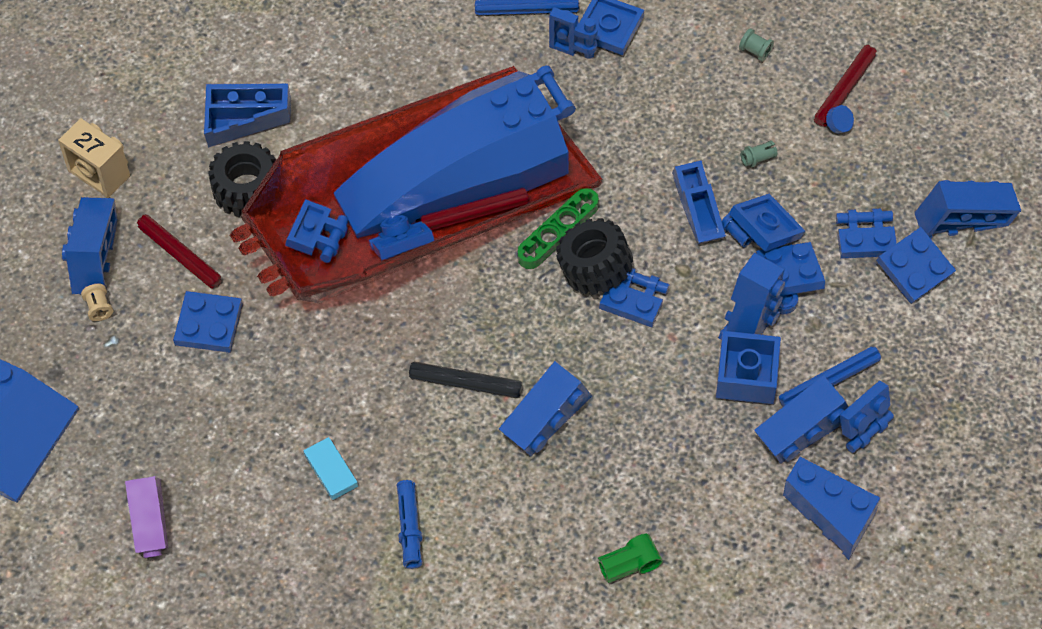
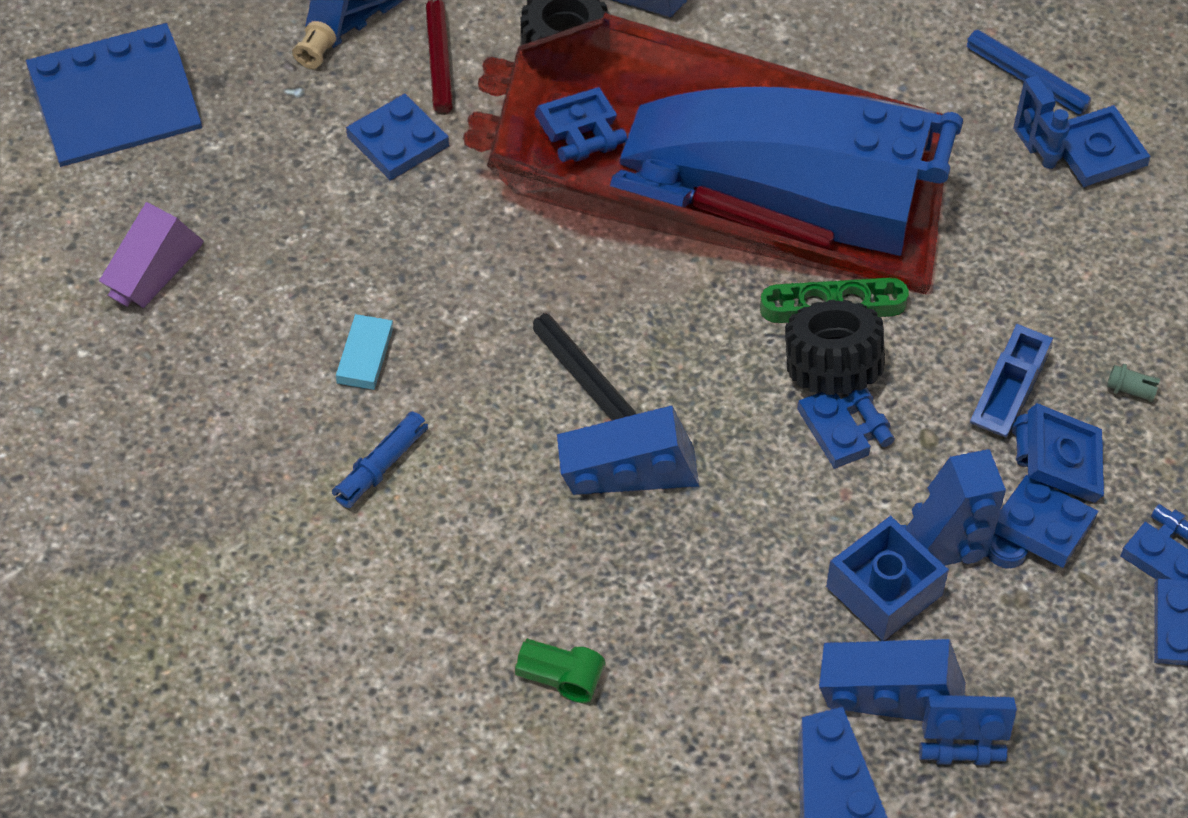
camera: 40 degrees right, 5 degrees down
(837, 373) = (1005, 668): blue axle -> none

